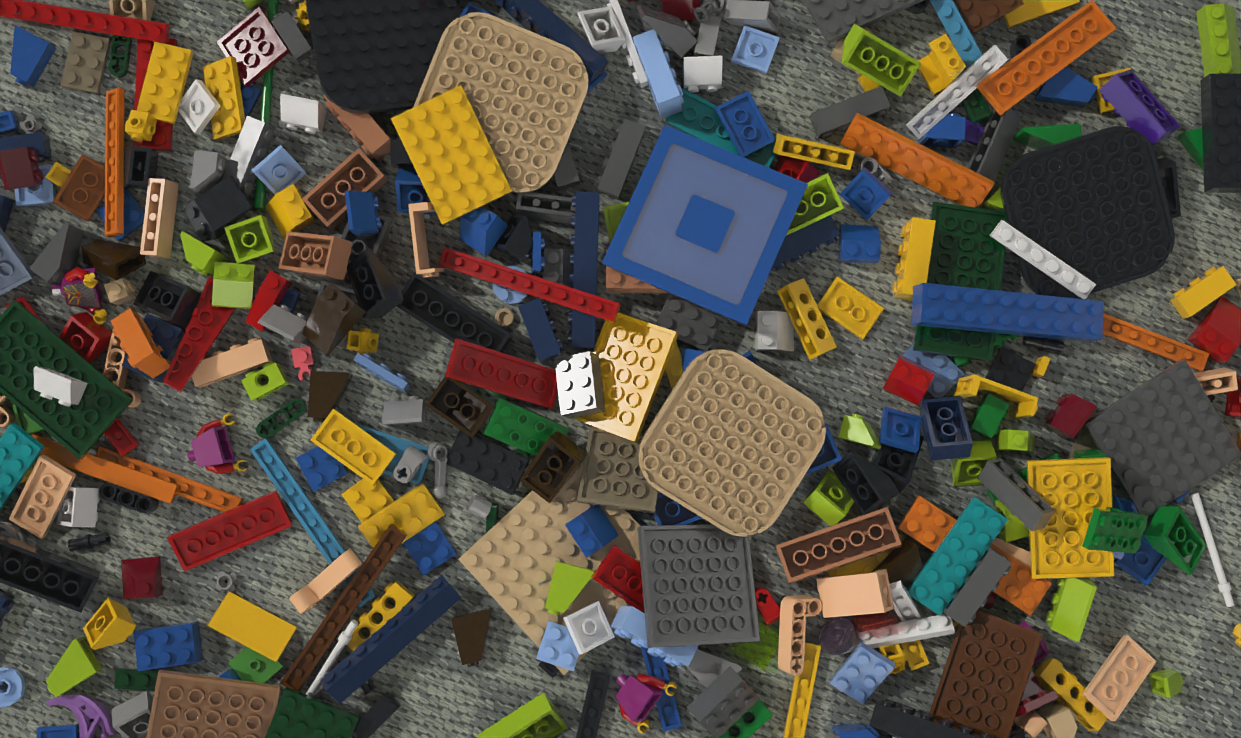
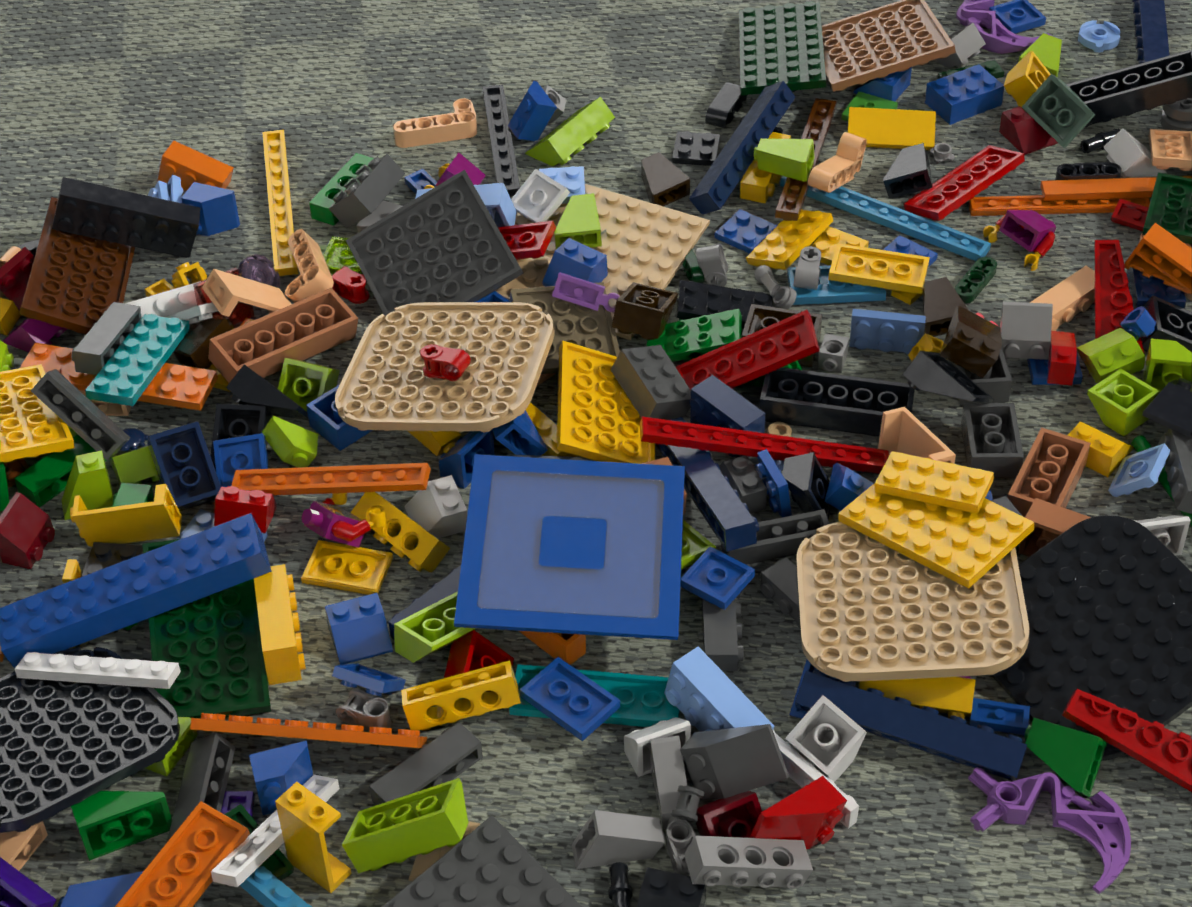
camera: 160 degrees right, 40 degrees down
(109, 570) = (1058, 110): none -> sand green slope
(198, 296) = (1139, 323): none -> blue plate
(253, 384) = (1016, 289): lime brick -> none
(266, 560) = (908, 172): none -> black slope
(315, 255) = (1033, 392): nougat brick -> none
(344, 639) = (791, 131): white bar -> none
(363, 213) = (1006, 433): blue slope -> none
(366, 598) = (786, 157): none -> lime slope
(404, 412) = (837, 304): light grey slope -> none
(422, 380) = (833, 353): none -> light grey brick
(423, 672) = (695, 148): none -> plate
(437, 181) = (934, 482): none -> yellow plate
(599, 485) = (582, 292): none -> medium lavender plate
(613, 179) = (717, 578): none -> blue plate
(735, 425) = (445, 363): none -> red piece
(755, 49) = (588, 795): light blue plate -> none
(846, 370) = (335, 479): none -> orange plate
(851, 337) = (339, 524): none -> torso
(862, 673) = (219, 254): medium blue plate -> none
(973, 490) = (137, 439): none -> dark blue piece

